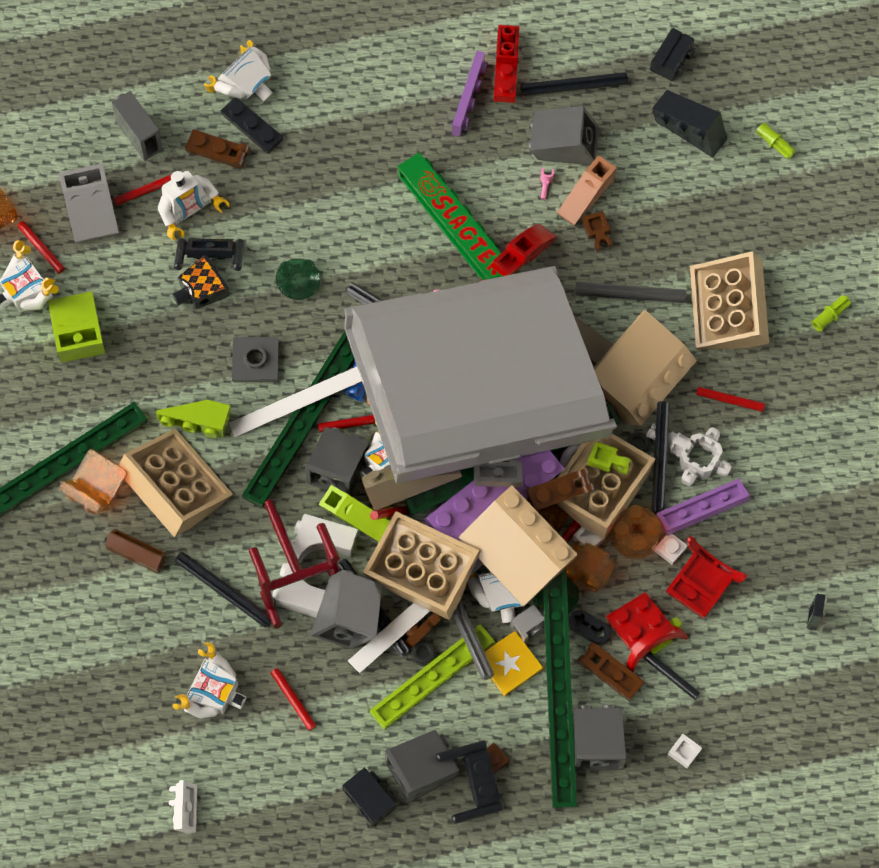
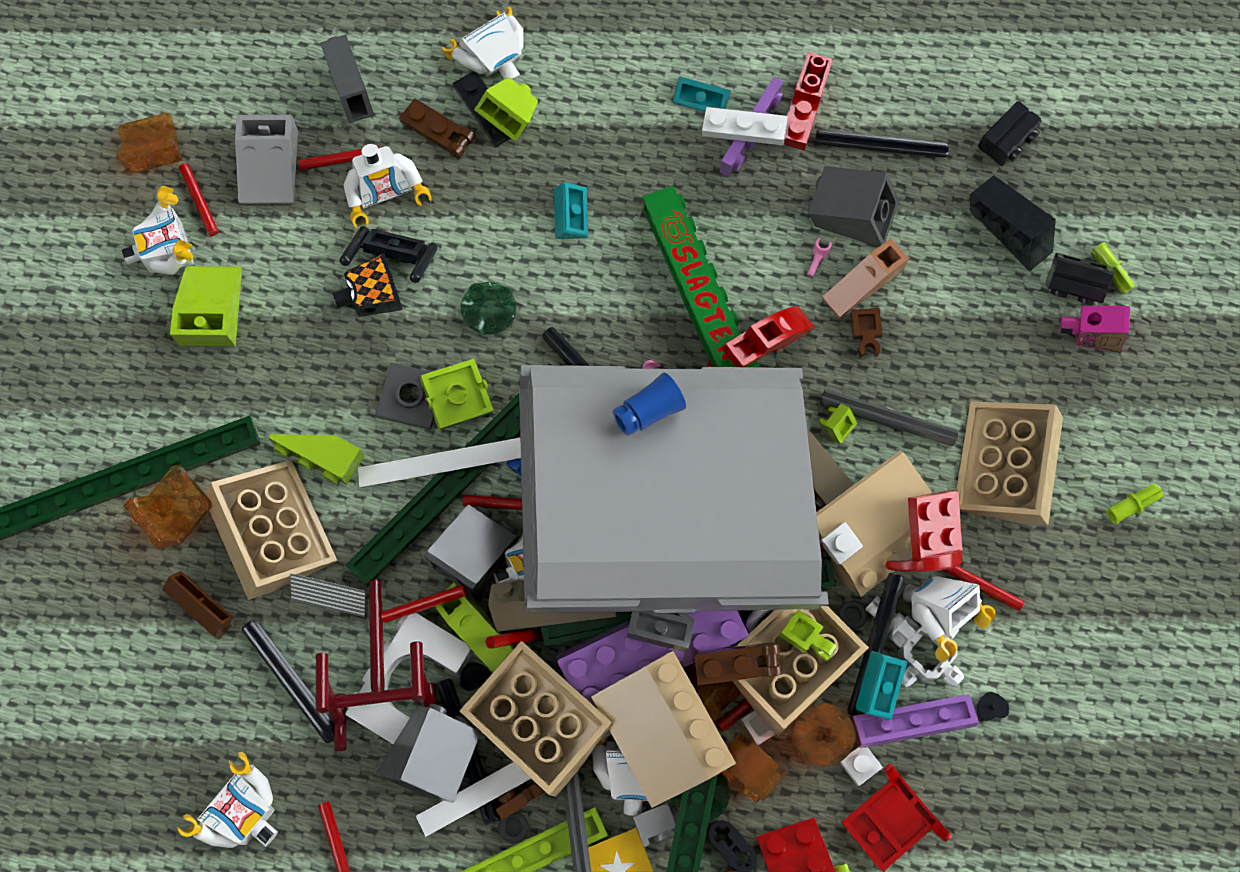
camera: 15 degrees right, 5 degrees up
(235, 519) = (327, 595): none -> sticker
(273, 120) = (508, 107): none -> lime torso
(292, 349) = (456, 394): none -> lime plate
(312, 505) = (424, 603): none -> red bar
(342, 191) = (570, 211): none -> teal slope
(362, 552) = (473, 676): none -> black piece
(422, 78) = (700, 95): none -> teal slope
(451, 312) = (650, 405): none -> blue plant
(463, 93) = (744, 126): none -> white plate
(594, 304) = (840, 423): none -> lime tile
(616, 386) = (841, 543): none -> white plate
(671, 485) = (881, 685): none -> teal slope
(683, 364) = (933, 533): none -> piece
(705, 417) = (944, 607): none -> white torso
(750, 154) = (1079, 278): none -> black brick
(758, 484) = (992, 706): none -> black piece
(773, 187) = (1099, 327): none -> dark pink torso

